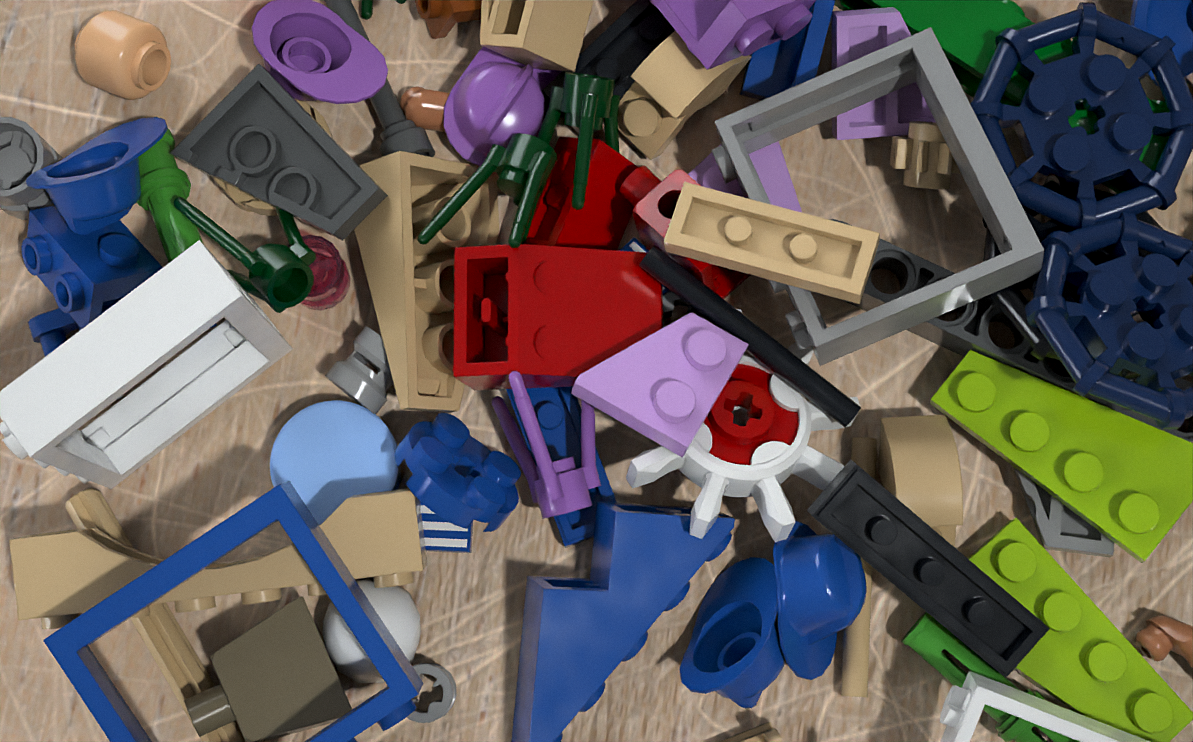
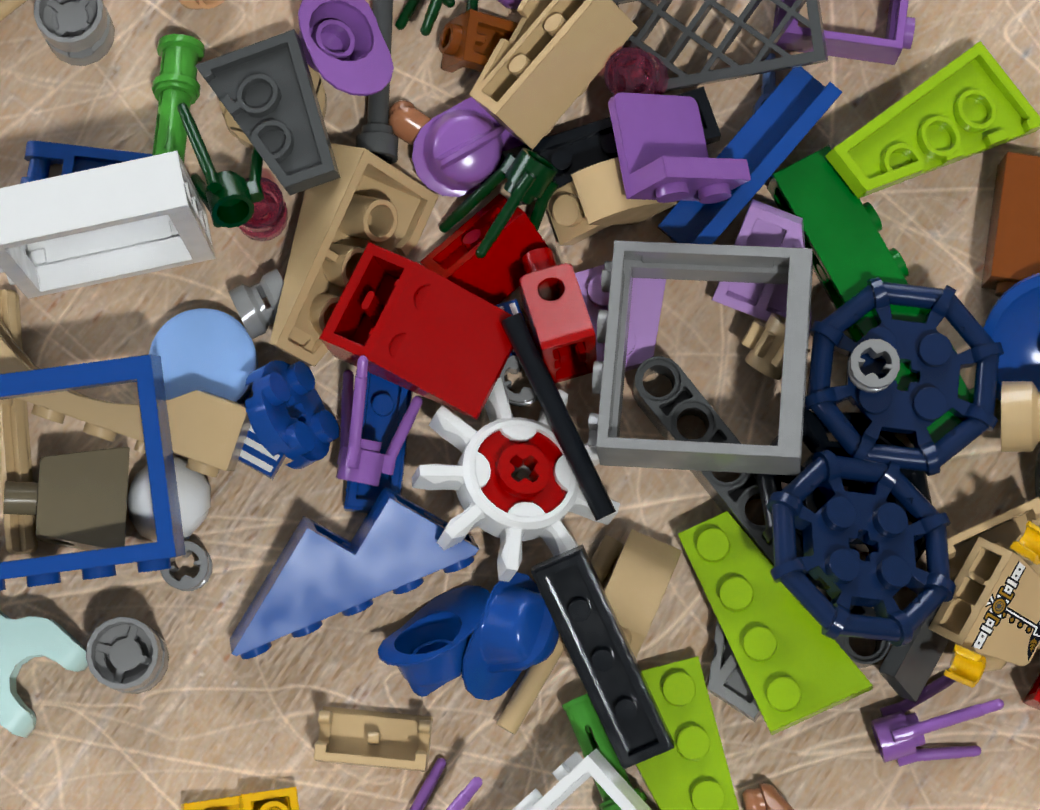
camera: 25 degrees right, 0 degrees up
(84, 268) = (94, 115): blue bracket -> none
(101, 177) = (133, 59): blue piece -> none
(522, 175) = (452, 211): dark green plant -> none
(665, 380) = (476, 418): lavender wing -> none
(772, 242) = (602, 353): tan plate -> none
(1046, 102) = (875, 349): none -> light grey bush

